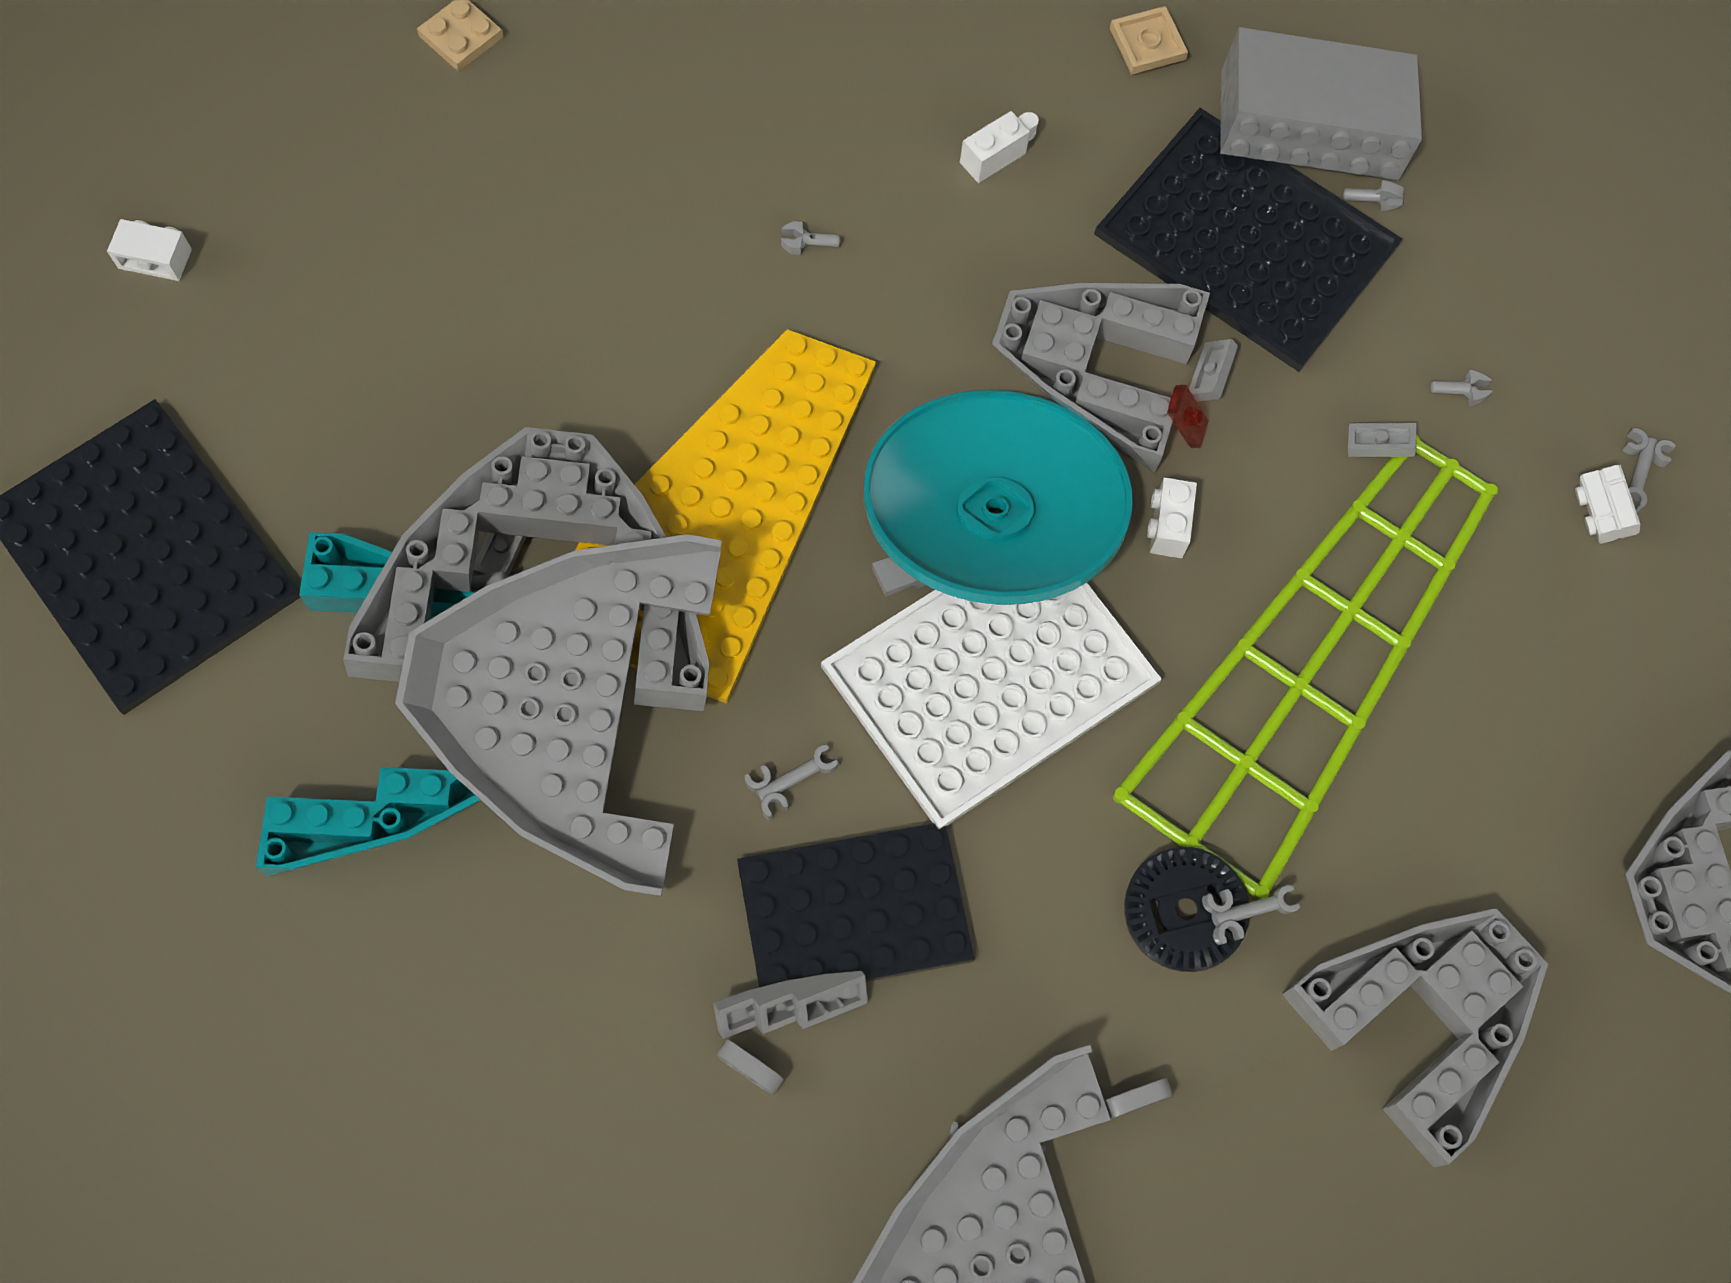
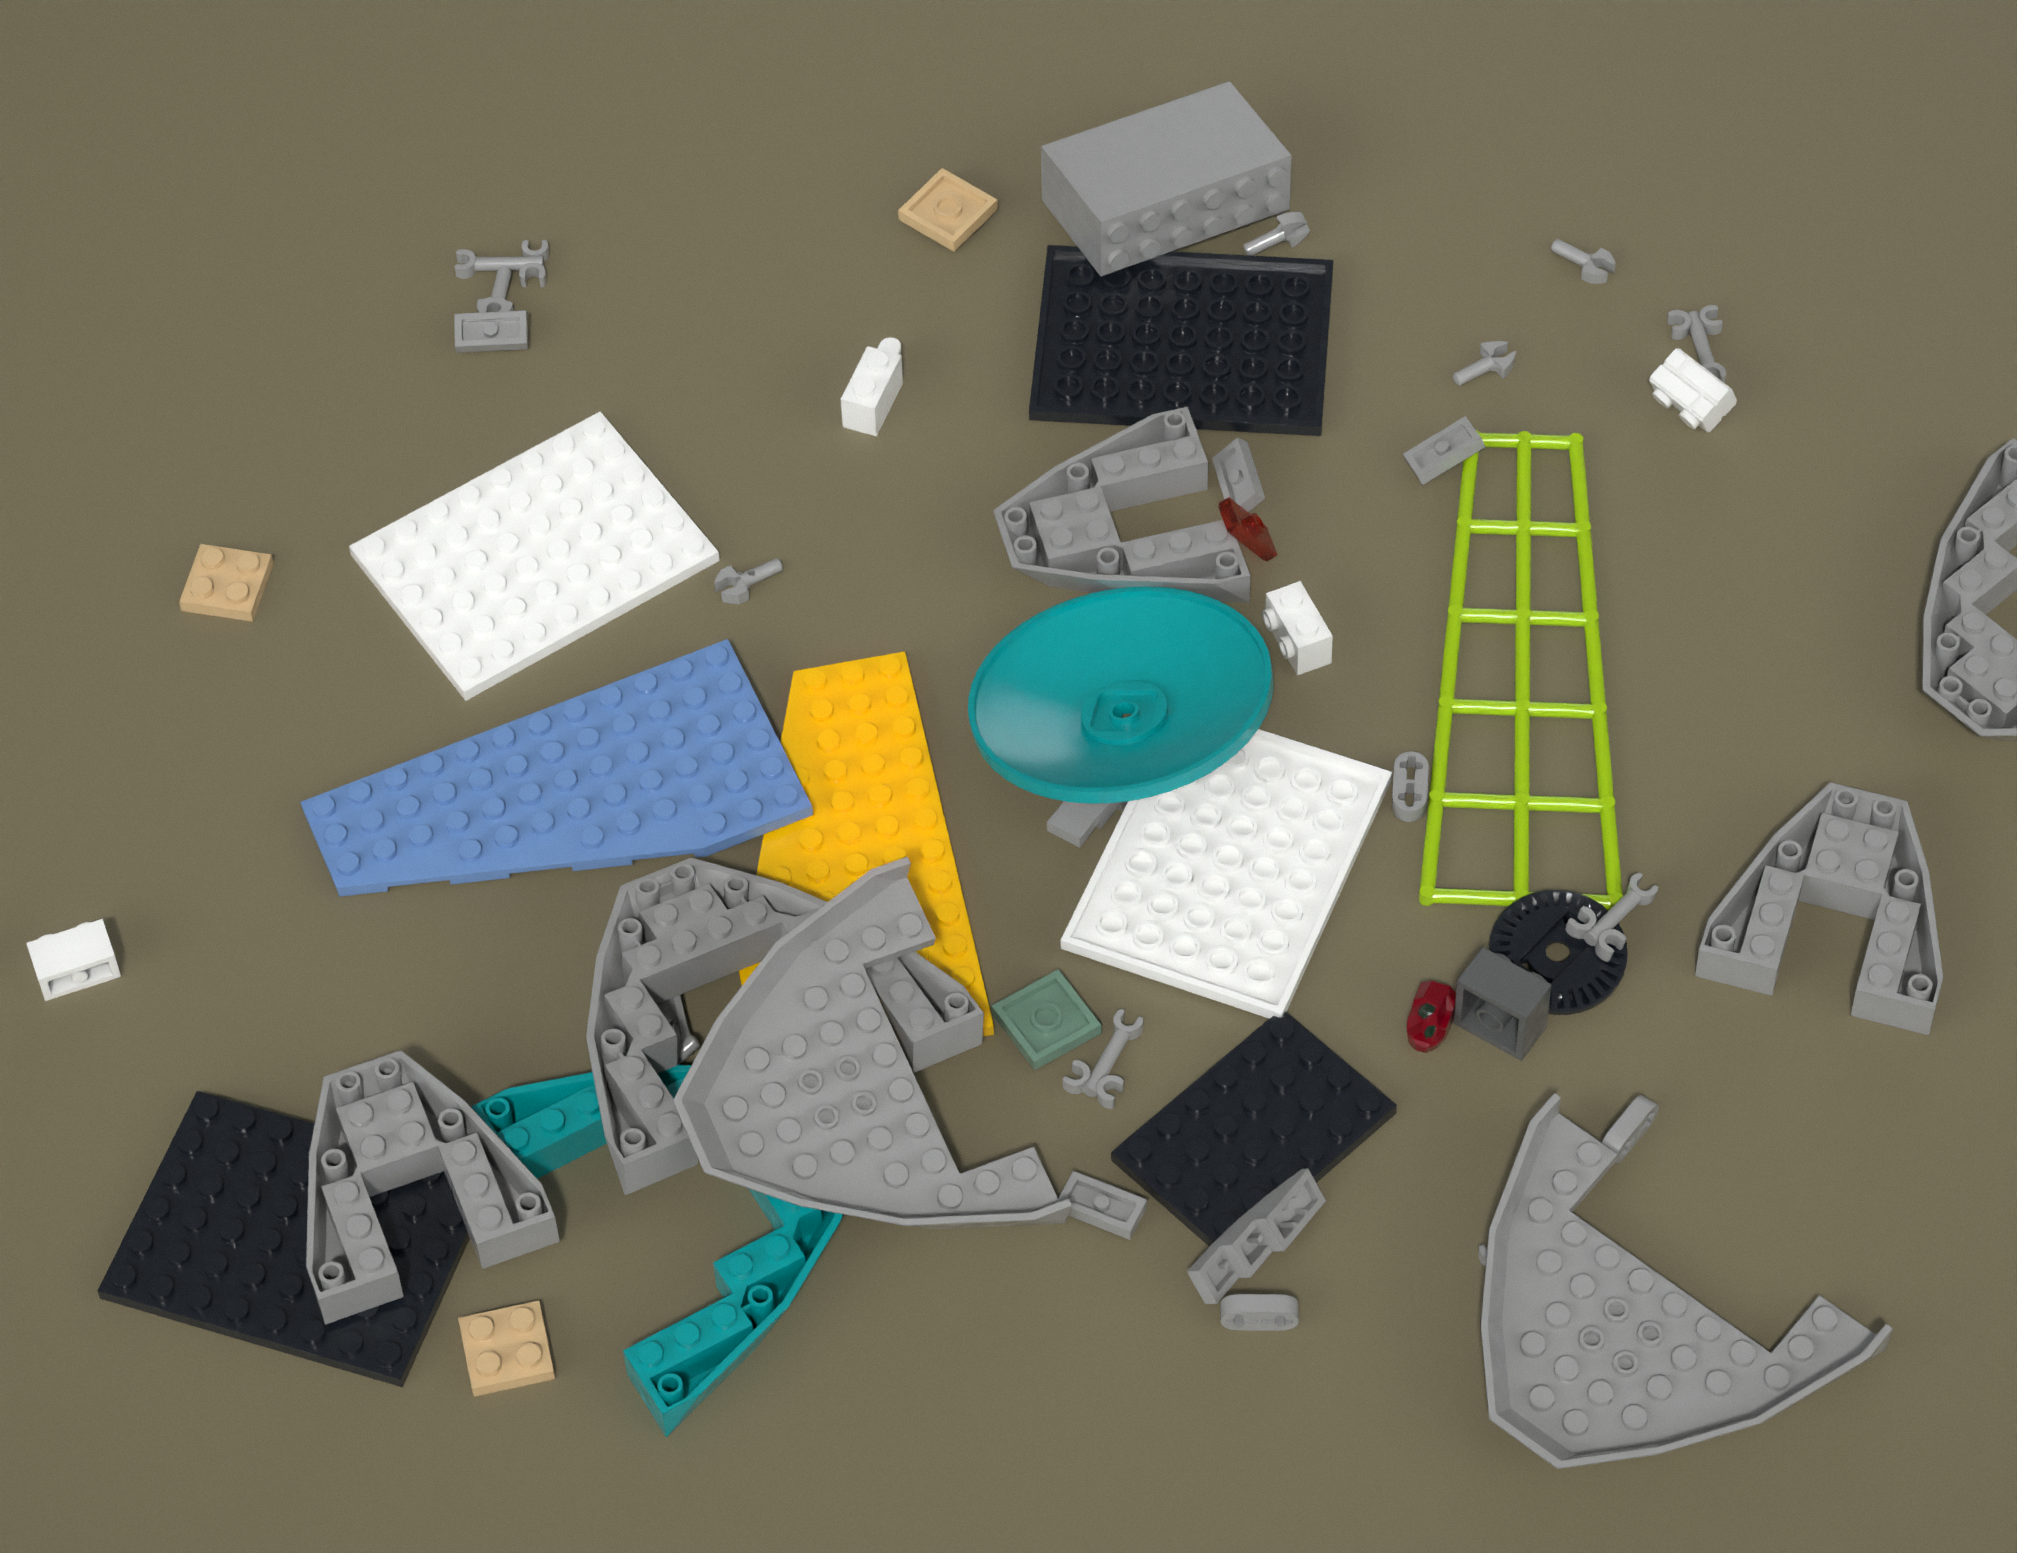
camera: 25 degrees left, 15 degrees down
(210, 733) = (506, 1348): none -> tan plate
(229, 510) = (389, 1128): none -> light grey piece
(589, 332) = (591, 783): none -> medium blue wing
(676, 134) = (533, 555): none -> white plate
(699, 898) = (1103, 1205): none -> light grey plate
(767, 718) = (1046, 1019): none -> sand green plate
(1051, 901) = (1430, 1016): none -> dark red rock
(1110, 931) = (1502, 1003): none -> dark grey brick
(1175, 701) = (1405, 786): none -> light grey beam
(1598, 350) = (1588, 262): none -> light grey bar

